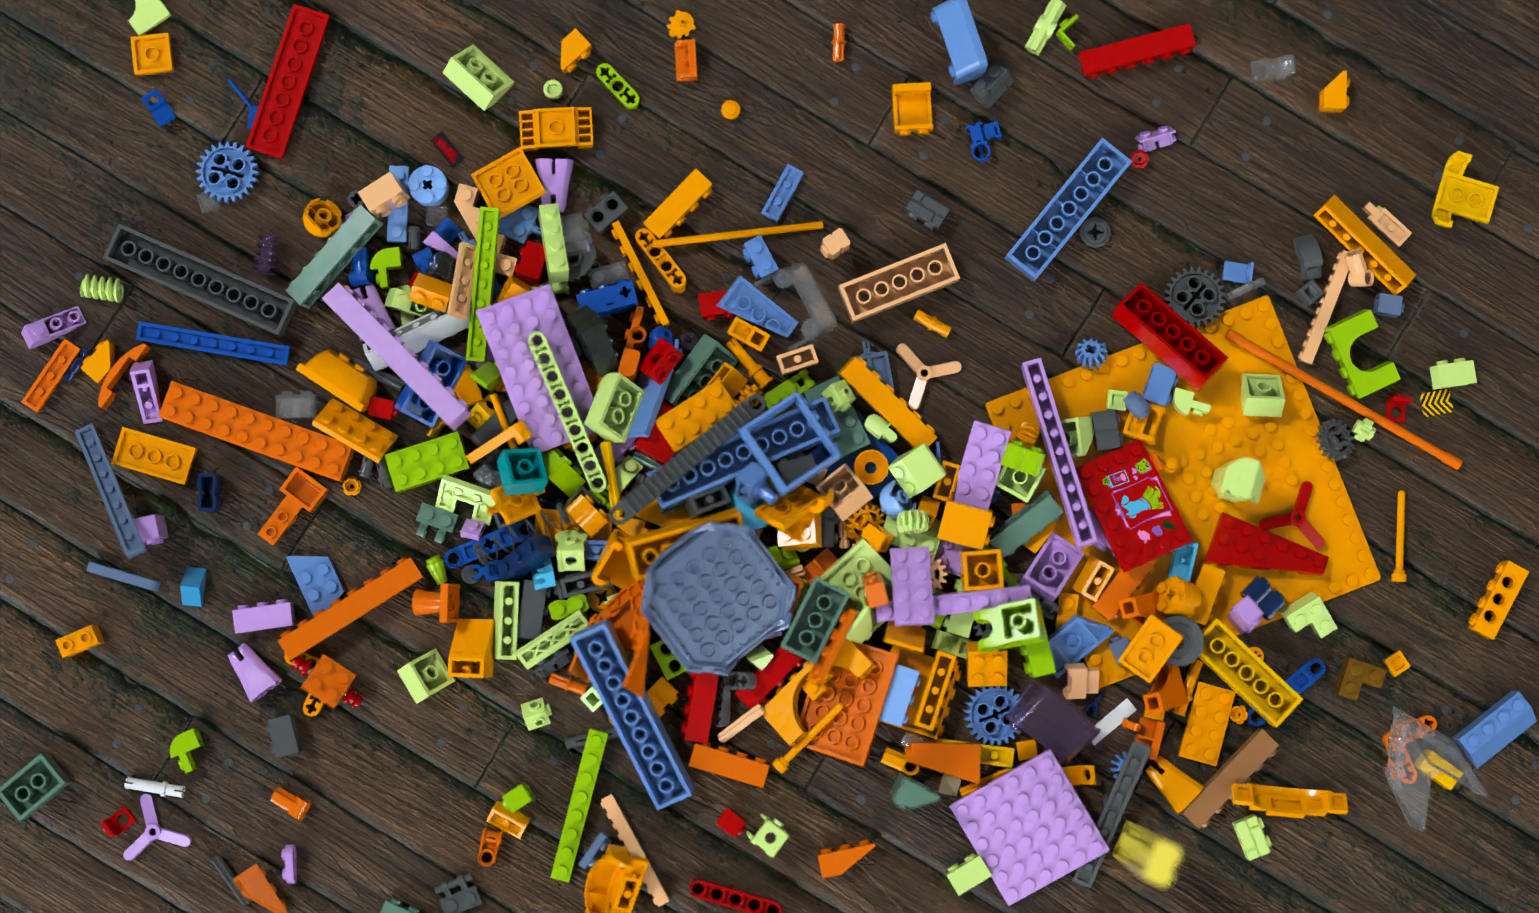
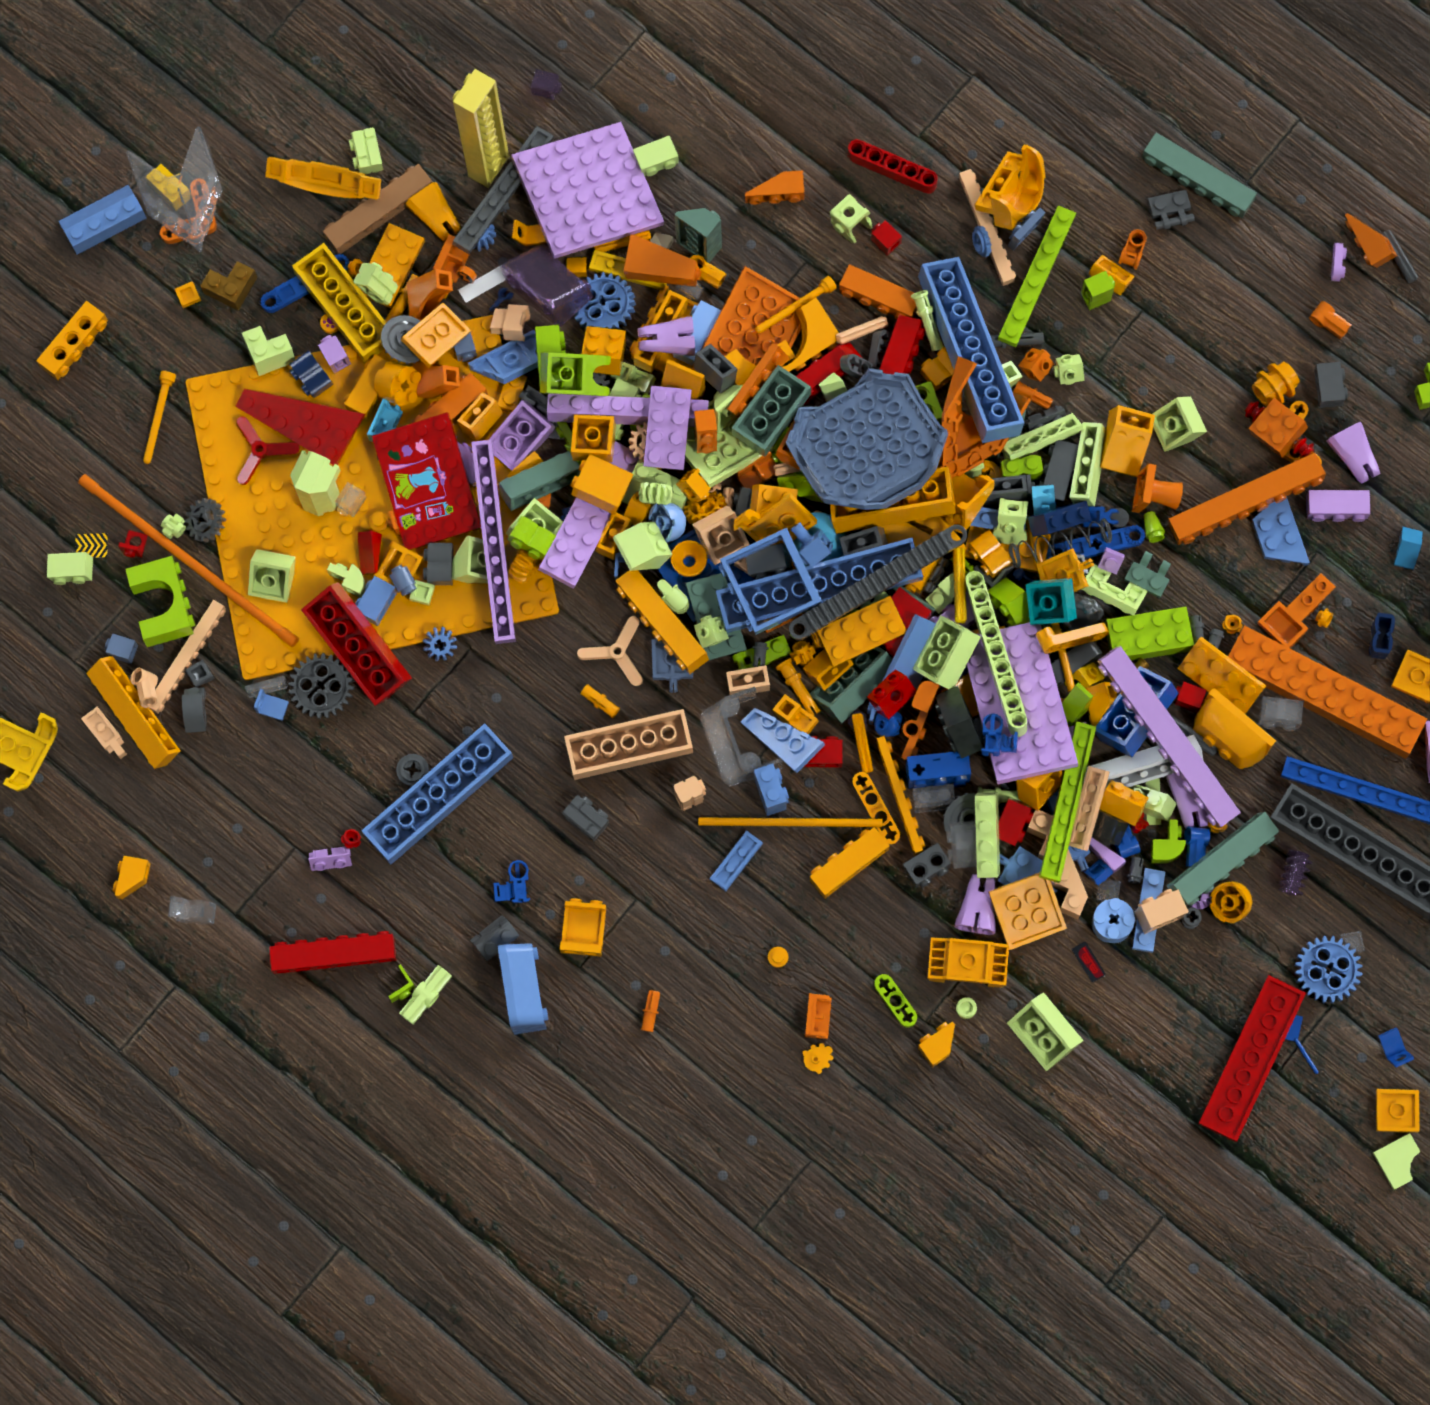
camera: 165 degrees left, 10 degrees down
(266, 504) = (1324, 618): none -> light orange plate
(335, 727) = (1279, 382): none -> light orange piece
(555, 320) = (999, 740): none -> blue piece
(568, 714) = (1036, 364): none -> orange brick
(637, 832) = (981, 241): none -> medium blue gear
(682, 318) = (862, 743): none -> light orange axle
(682, 748) = (925, 311): none -> yellowish green pin
(789, 386) = (759, 653): none -> dark grey pin
(875, 653) = (716, 368): none -> dark grey brick
(925, 680) = (669, 337): none -> lavender piece
(1173, 431) = (369, 550): none -> red slope
(1201, 478) = (350, 500): none -> clear brick
(1218, 695) = (376, 283): none -> yellowish green brick

